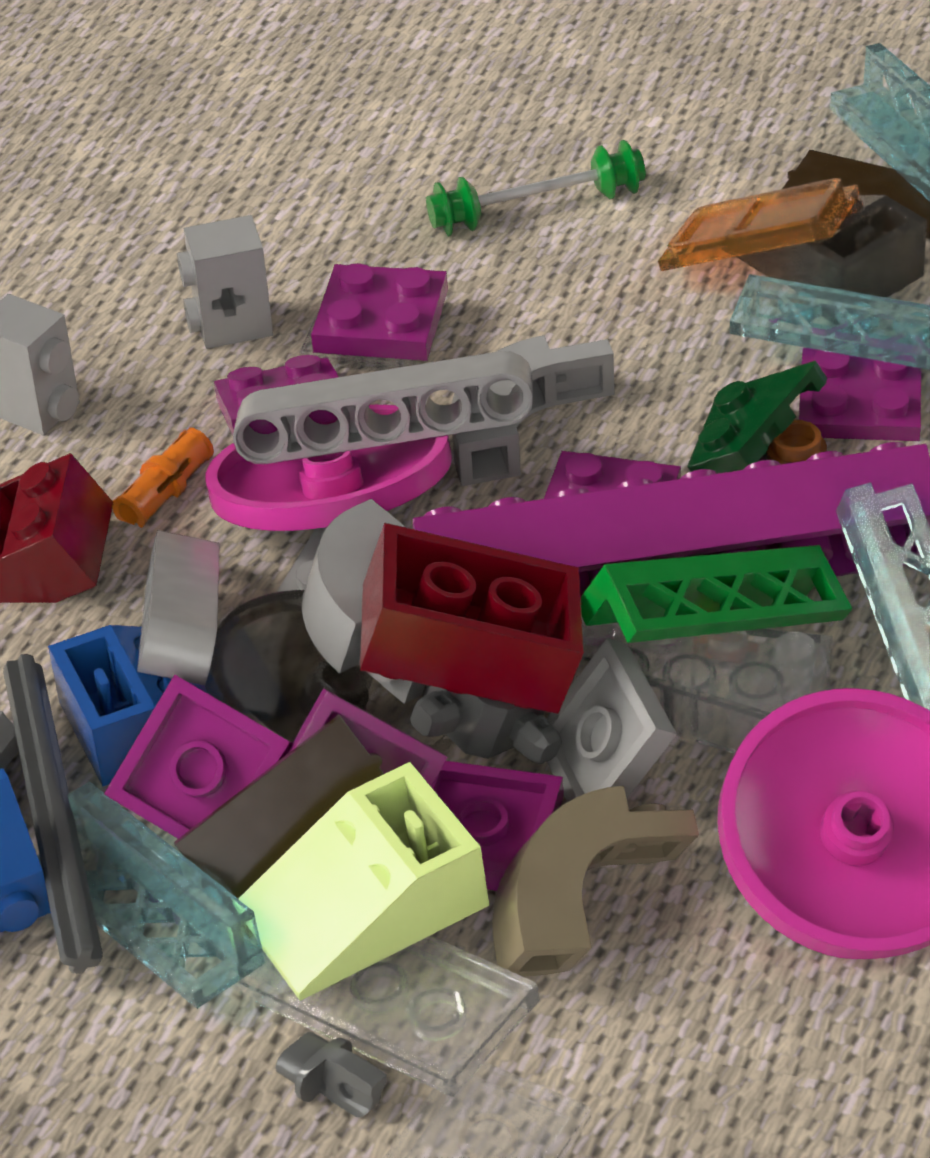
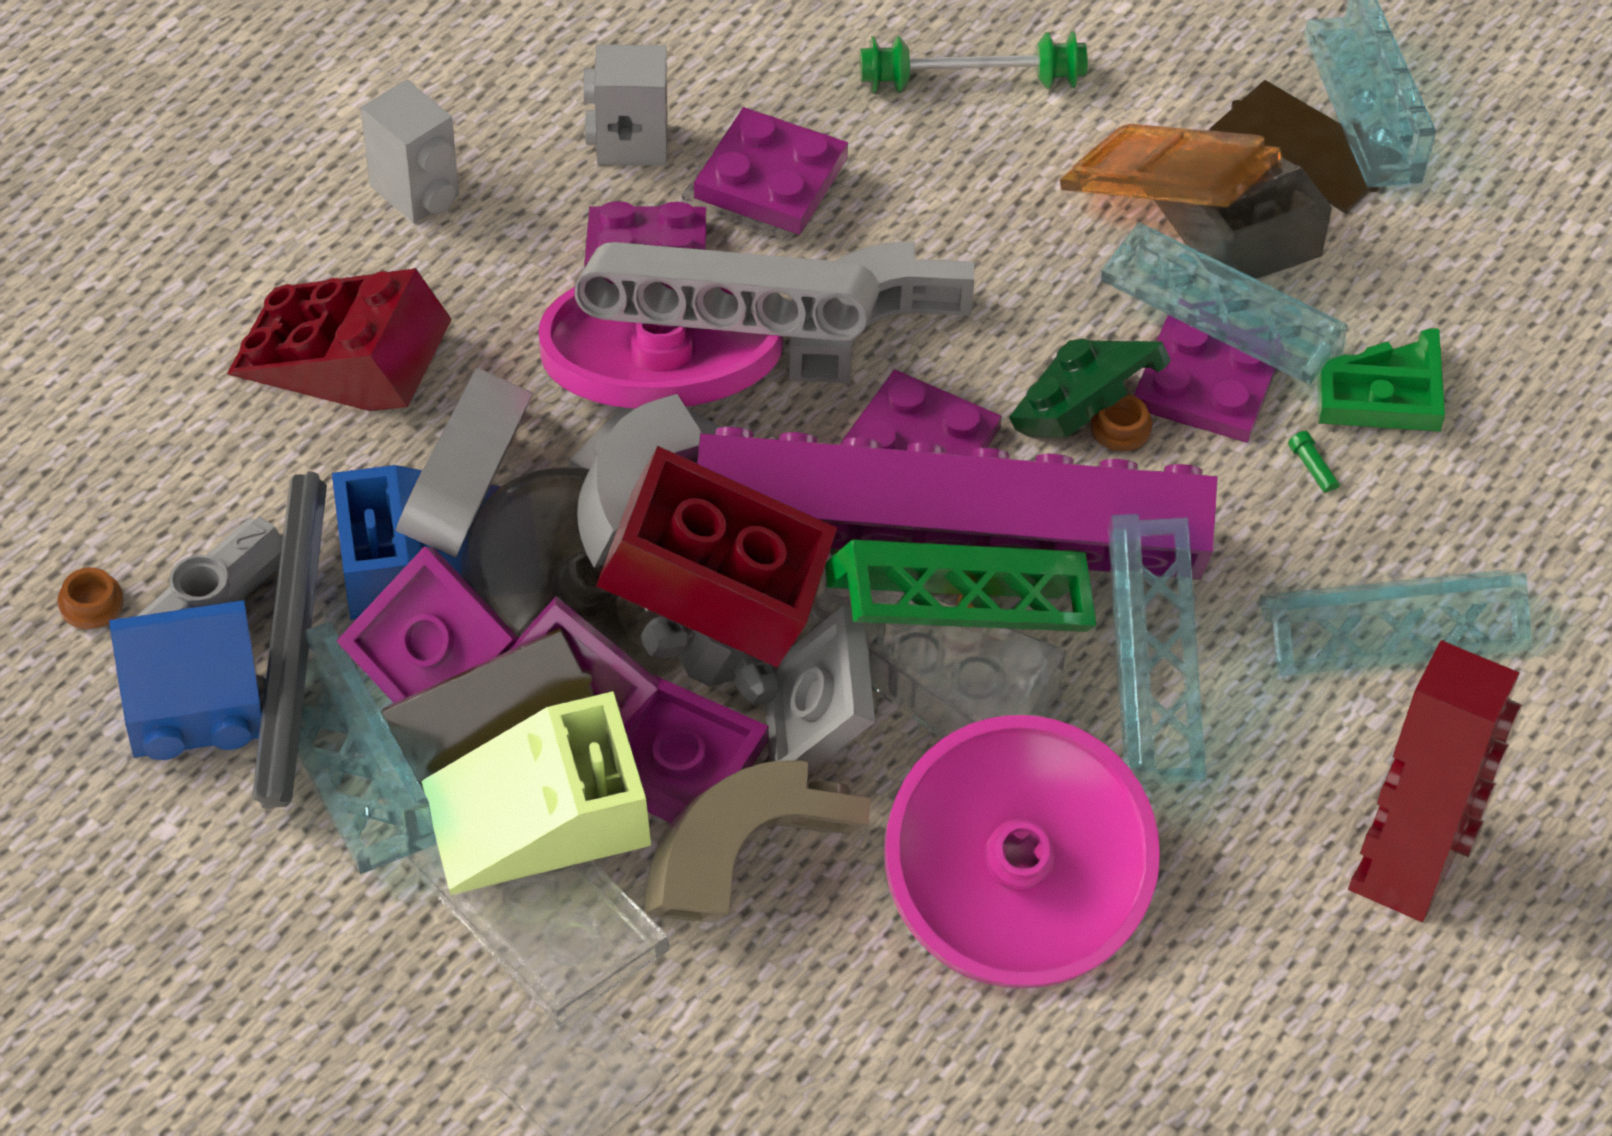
camera: 10 degrees right, 10 degrees up
(163, 477) = (508, 302): orange pin -> none
(333, 1071) = (456, 962): dark grey piece -> none

